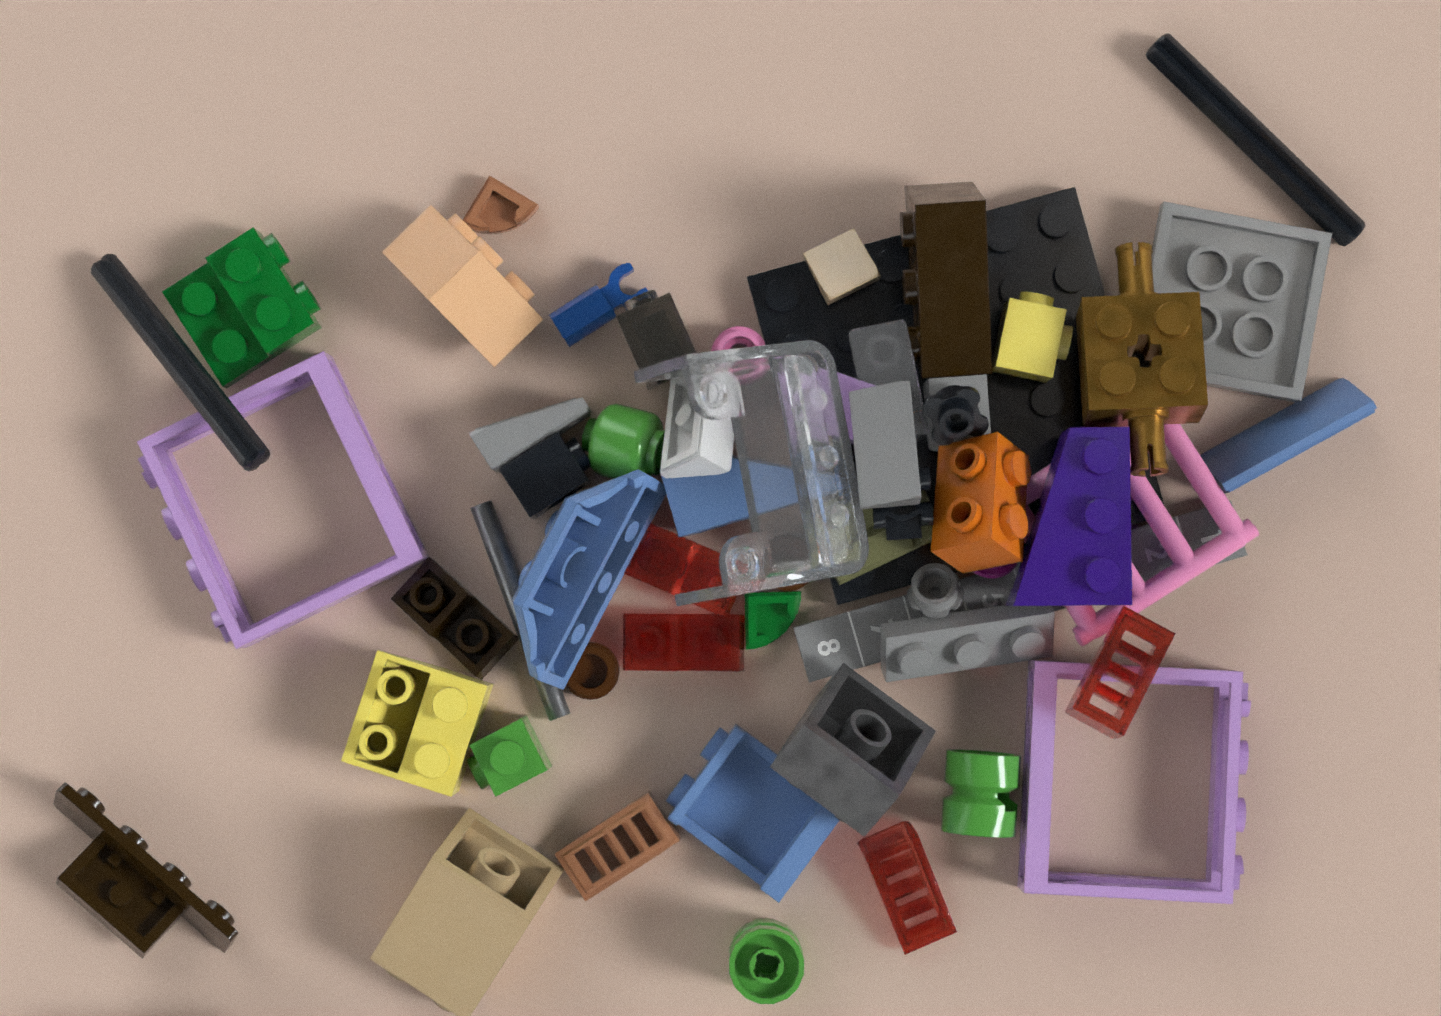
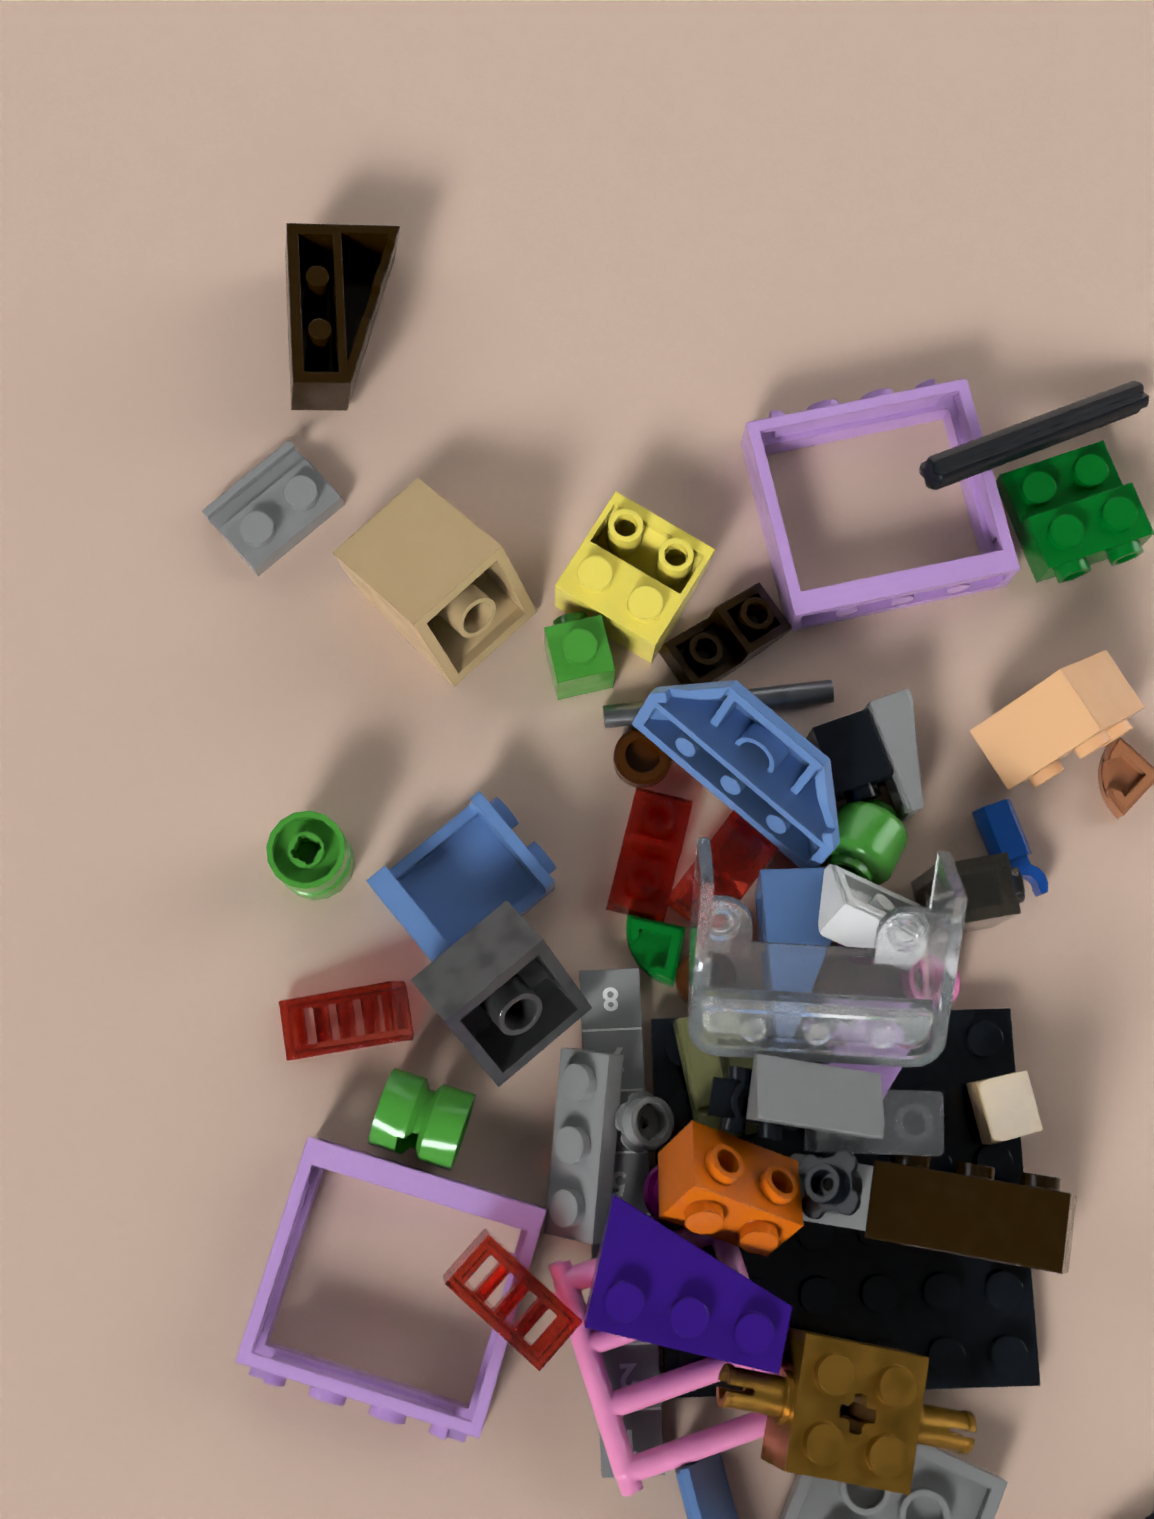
camera: 95 degrees right, 10 degrees down
(128, 886) = (542, 281): dark brown bracket -> none
(657, 821) = (486, 782): nougat slope -> none
(1031, 337) = (891, 1292): light yellow brick -> none

